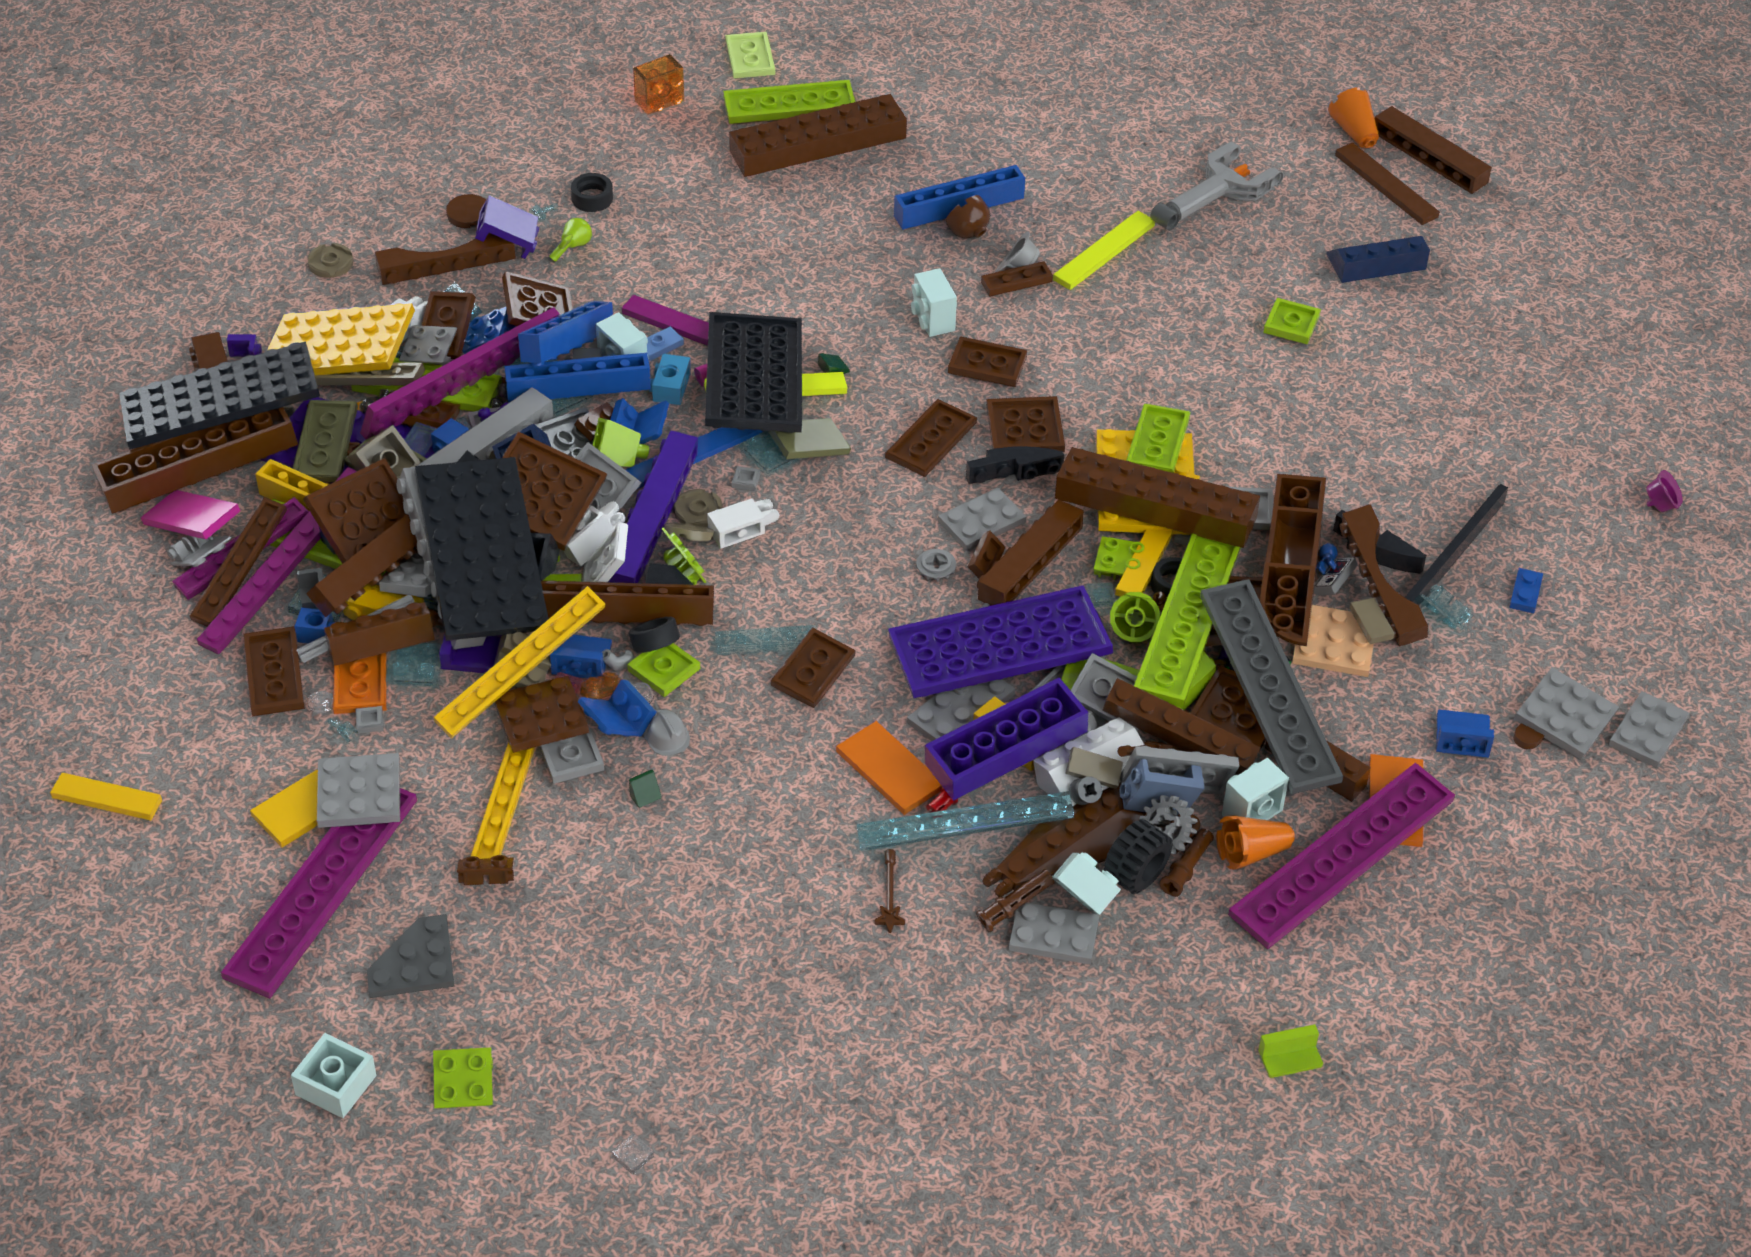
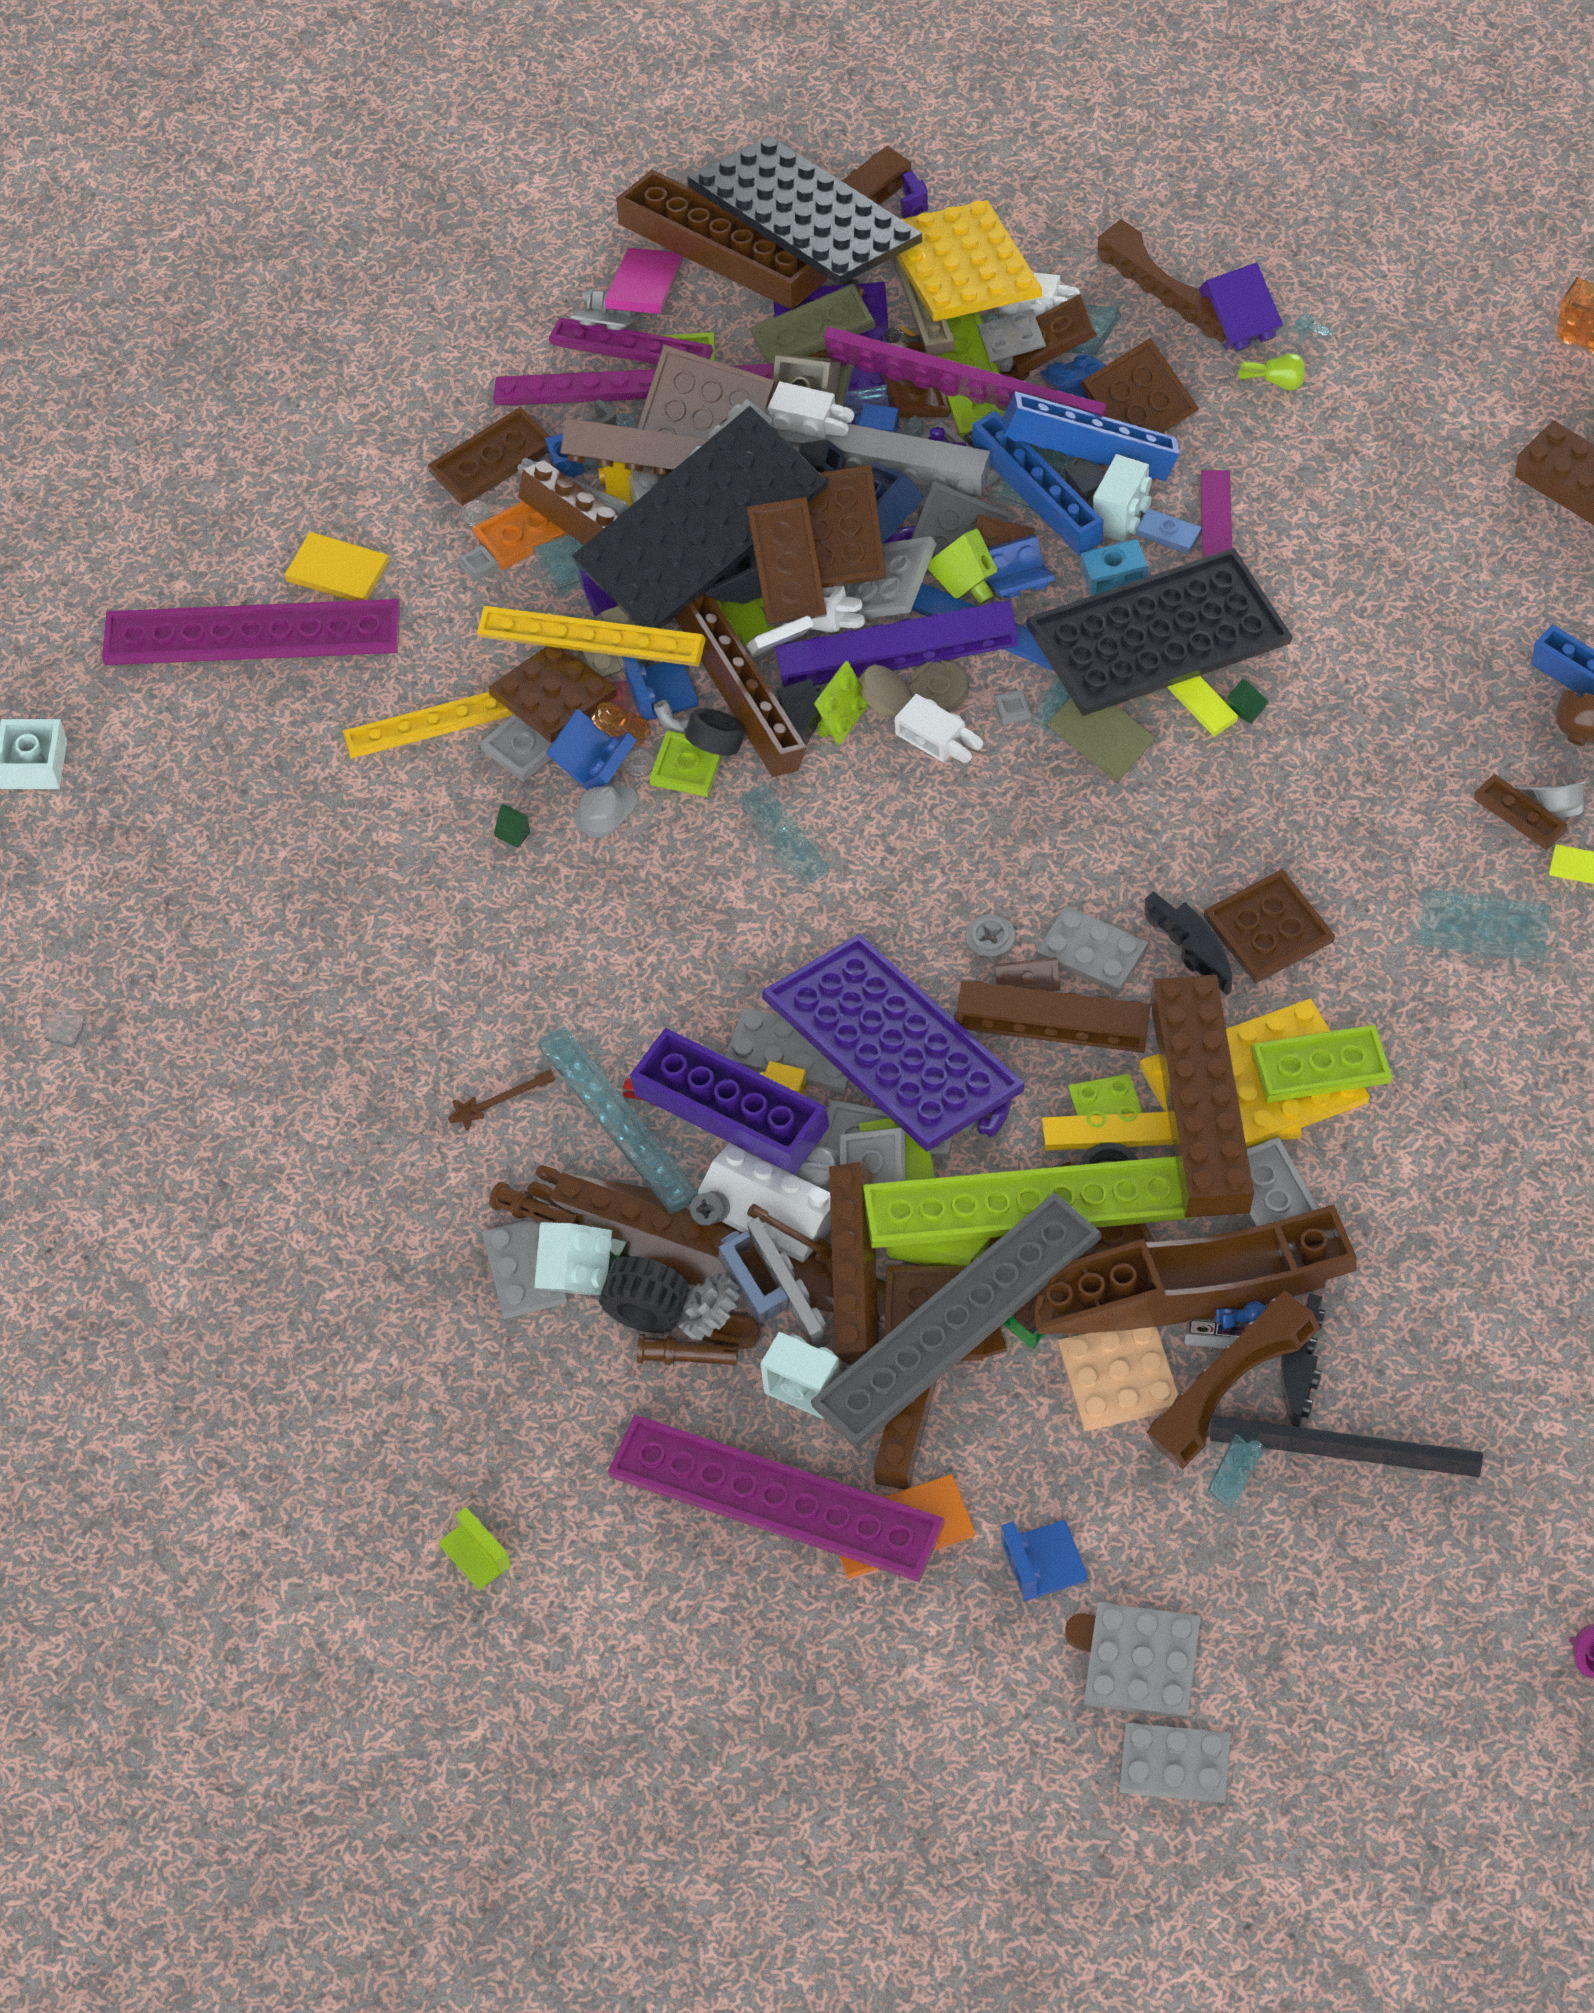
camera: 70 degrees right, 10 degrees up
(106, 796) = (270, 419): yellow tile -> none
(239, 561) = (607, 350): reddish brown tile -> none
(284, 483) = (732, 331): yellow brick -> none
(330, 260) = (1094, 198): dark tan tile -> none
(344, 729) = (449, 550): clear light blue hand -> none
(358, 790) = (371, 598): light grey plate -> none
(414, 961) = (205, 751): dark grey plate -> none
(421, 452) = (808, 411): none -> white hinge
(463, 1077) = (84, 854): lime hinge -> none
(464, 210) = (1271, 257): reddish brown tile -> none
(472, 870) = (335, 744): reddish brown hinge -> none
(562, 513) = (786, 561): none -> reddish brown plate
(592, 203) = (1367, 368): black tyre -> none
(813, 667) = (764, 892): reddish brown tile -> none
(889, 767) = (676, 1002): orange tile -> none
(931, 437) = (1192, 846): reddish brown tile -> none
(934, 302) = (1400, 746): light aqua brick -> none
(987, 361) = (1352, 844): reddish brown plate -> none
(1089, 764) = (740, 1193): dark tan tile -> none
(1090, 332) = (1484, 925): none -> clear light blue tile
(1101, 594) = (1042, 1107): clear light blue tile -> none
(1134, 617) = (1006, 1148): lime cylinder -> none
(1251, 840) = (743, 1401): orange cone -> none
(1371, 620) = (1155, 1395): dark tan tile -> none
(1526, 590) = (1332, 1551): blue plate -> none

